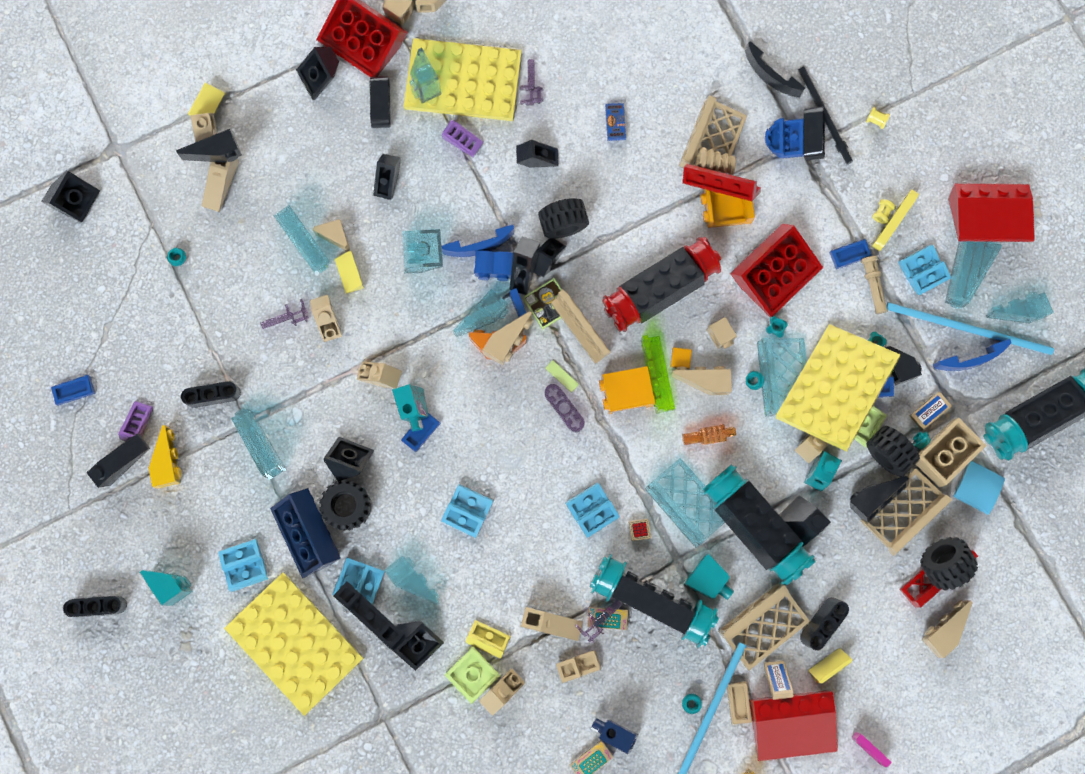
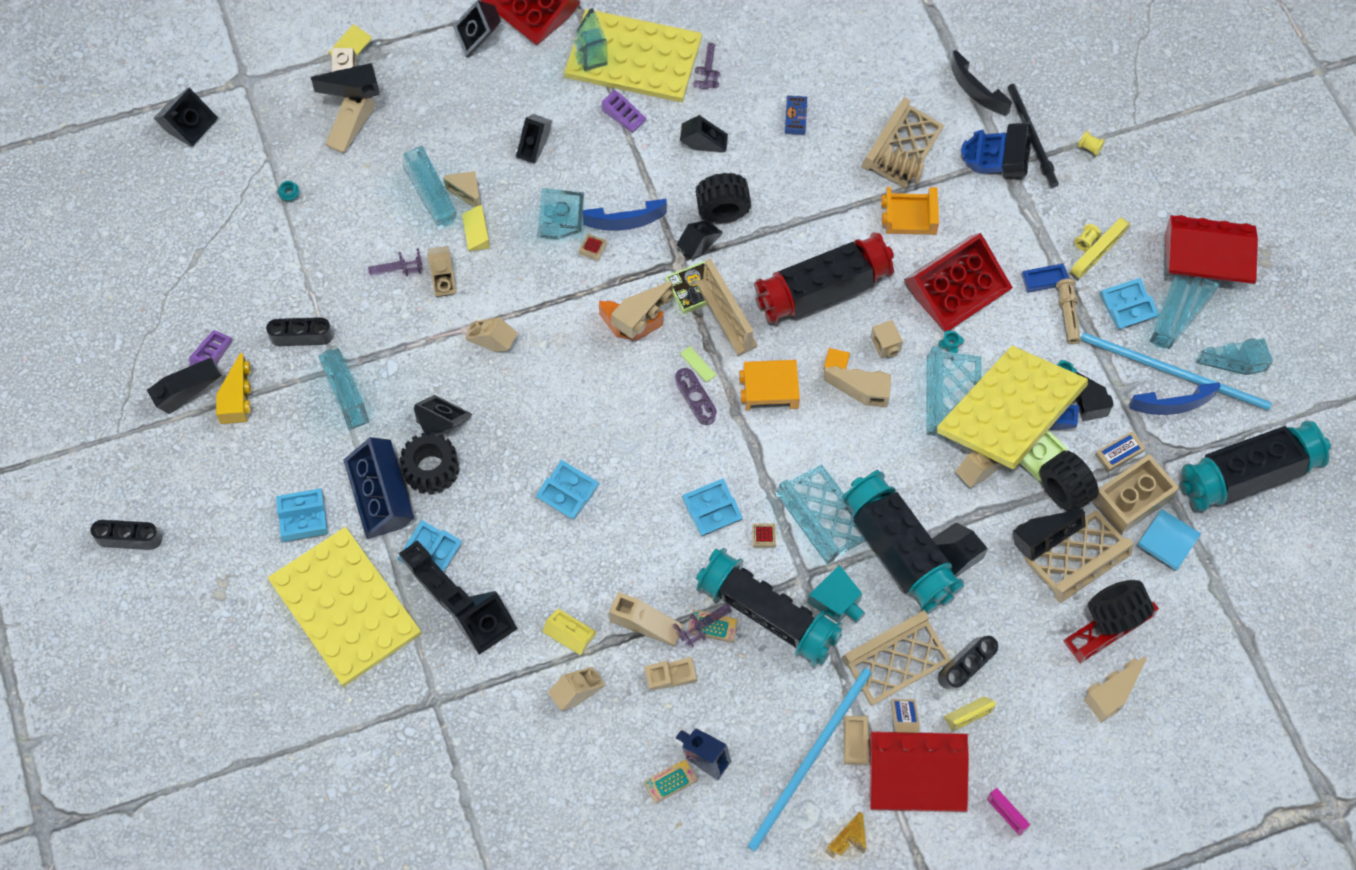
camera: 10 degrees right, 15 degrees down
(72, 390) = (147, 310): blue tile -> none
(167, 587) = (214, 519): teal slope -> none
(380, 102) = (539, 65): black beam -> none
(406, 578) = (486, 552): clear light blue slope -> none
(411, 405) = (522, 365): teal torso -> none
(416, 439) = (528, 401): blue tile -> none
(454, 276) = (592, 247): none -> tile
(472, 675) = (543, 666): yellowish green tile -> none
(484, 313) = (620, 285): clear light blue slope -> none
(493, 264) = (638, 239): blue brick -> none
(514, 295) = (658, 279): blue tile -> none
(524, 264) = (671, 238): black slope -> none
(658, 373) = (808, 373): clear neon green fence -> none
(698, 703) = (802, 726): teal plate -> none
(709, 435) = (858, 444): clear orange hinge -> none
(720, 182) = (903, 180): red fence -> none
(751, 376) = (915, 389): teal plate -> none
(824, 470) = (988, 492): teal torso -> none
(921, 440) = (1104, 478): teal plate -> none

